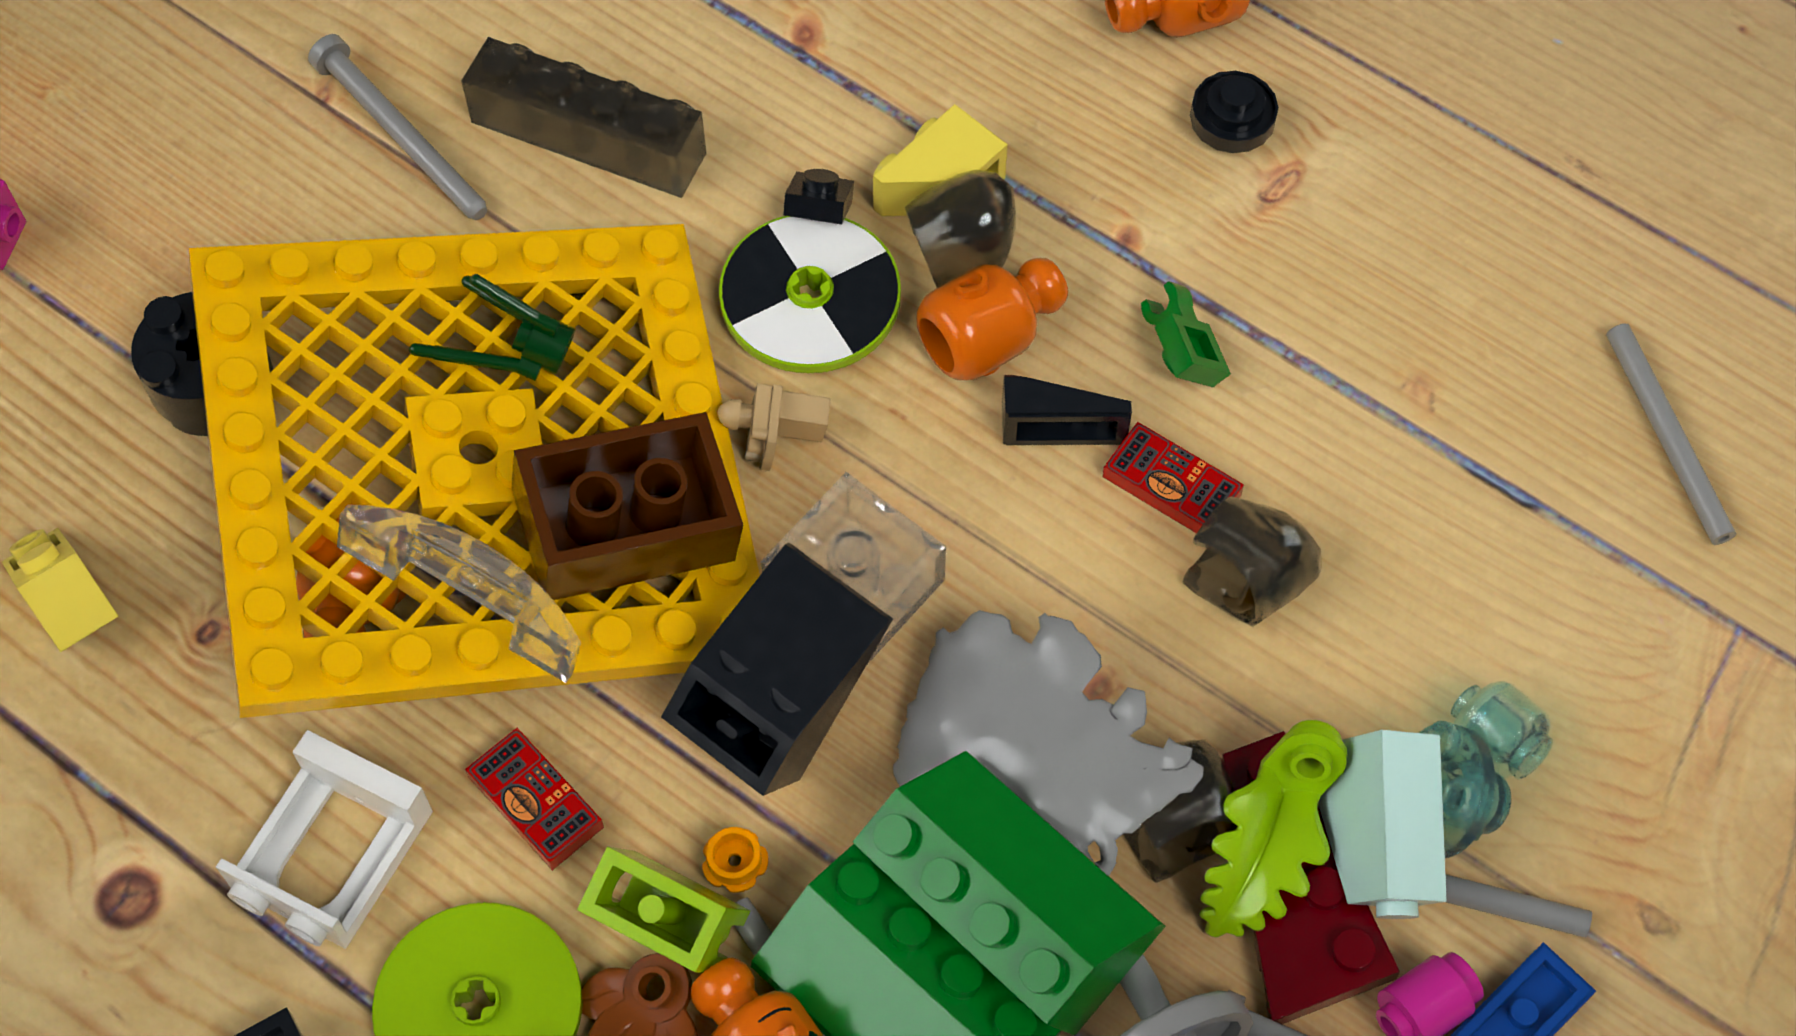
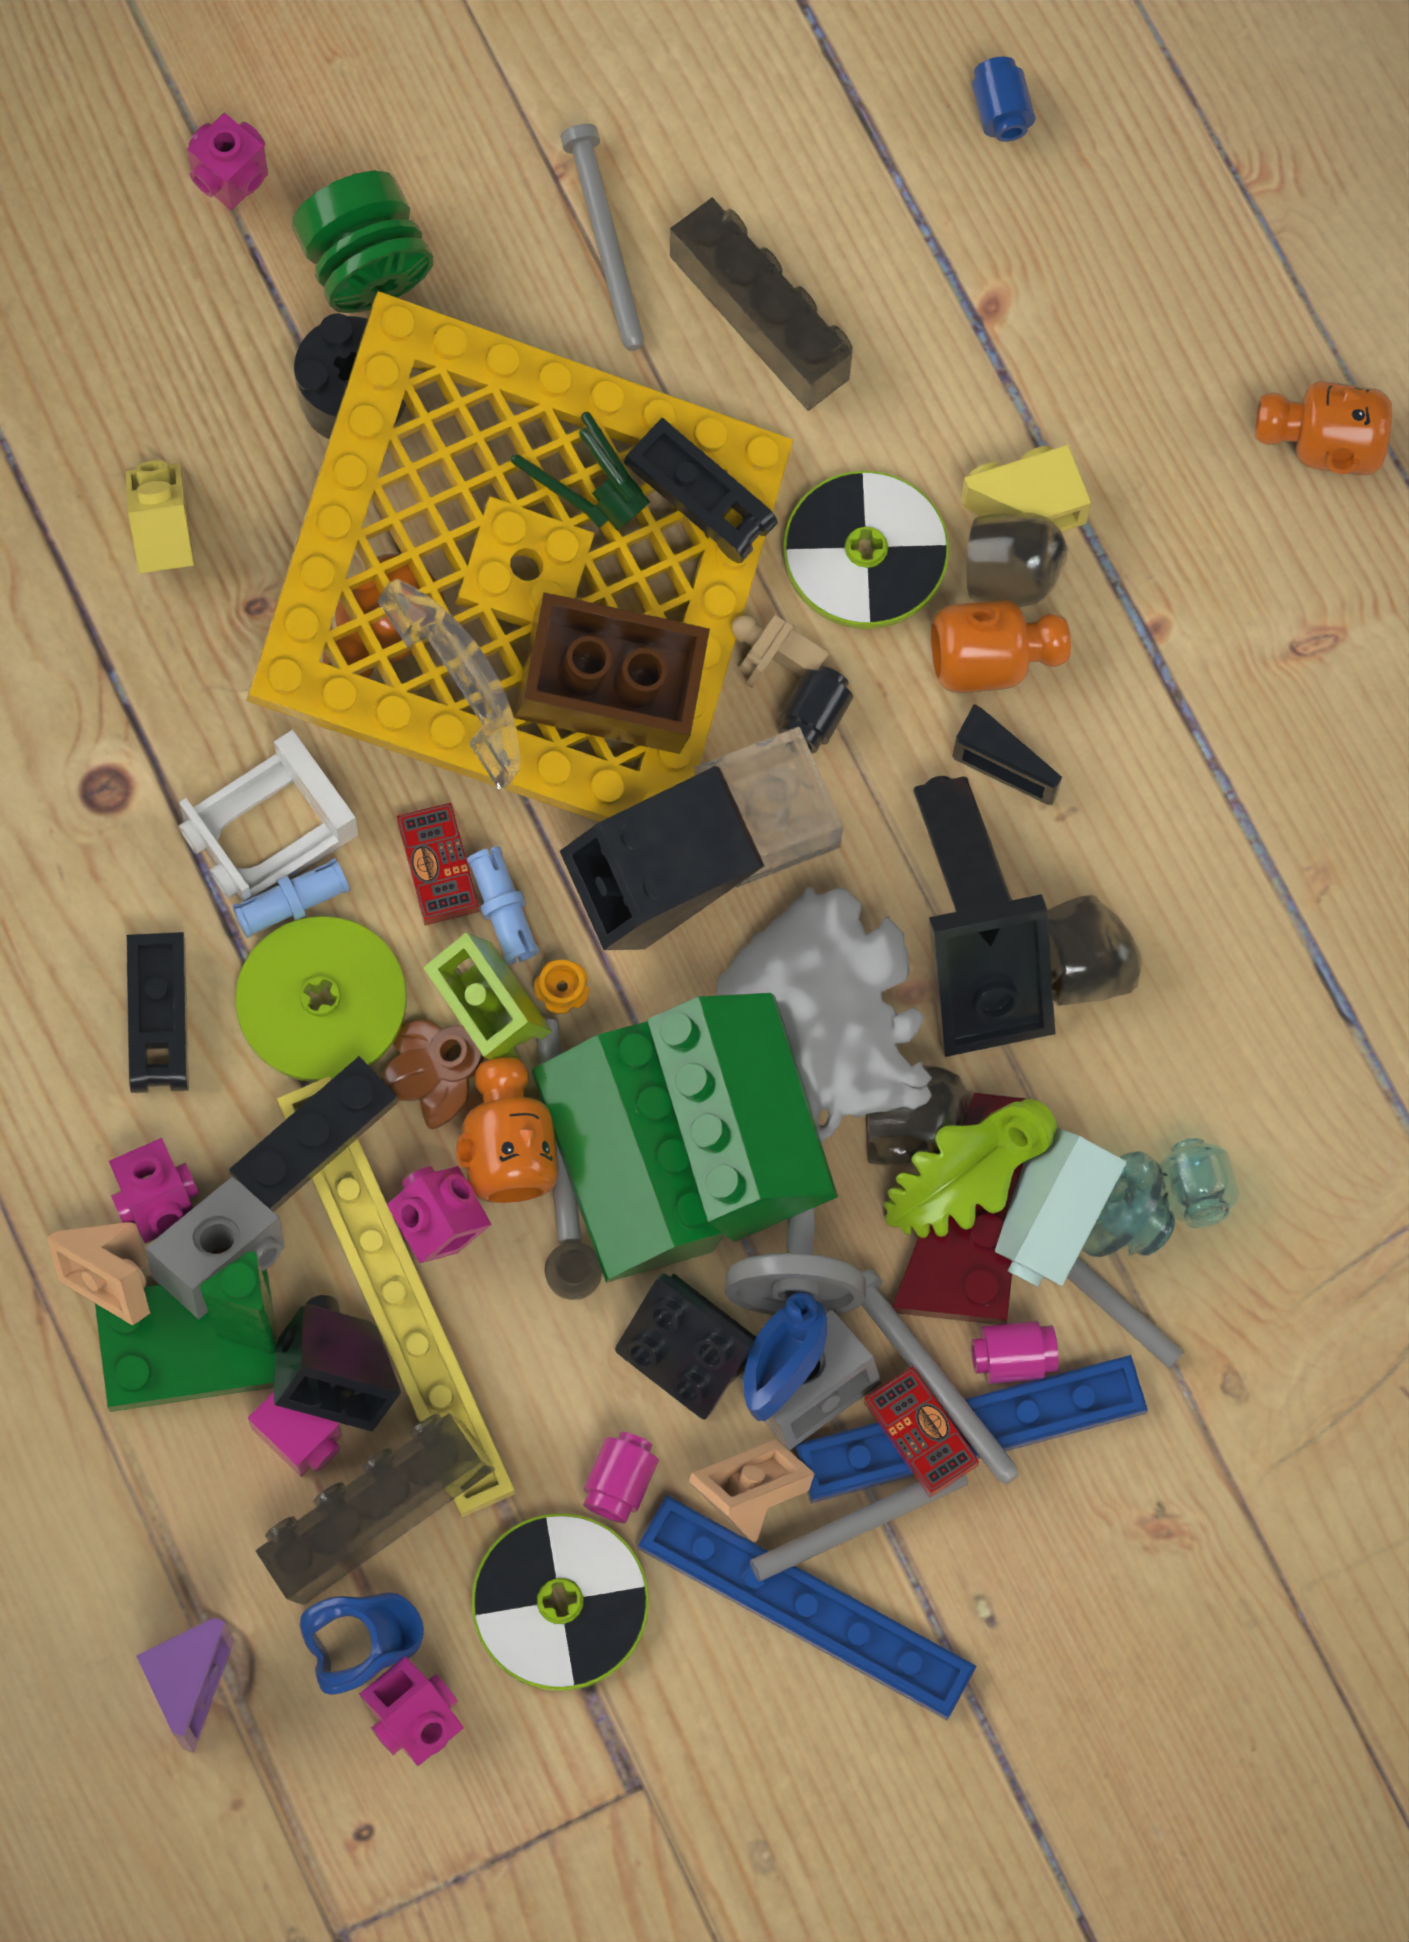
camera: 25 degrees right, 10 degrees up
(142, 217) = (362, 240): none -> green wheel
(390, 911) = (291, 898): none -> light blue pin
(620, 298) = (700, 489): none -> black plate
(627, 806) = (503, 905): none -> light blue pin
(819, 196) = (916, 470): black plate -> none
(842, 445) = (817, 706): none -> black brick
(1169, 477) = (1066, 851): tile -> none
(1173, 587) = (992, 950): none -> black piece
(1187, 343) = (1144, 747): green plate -> none
(1234, 111) = (1308, 560): black plate -> none

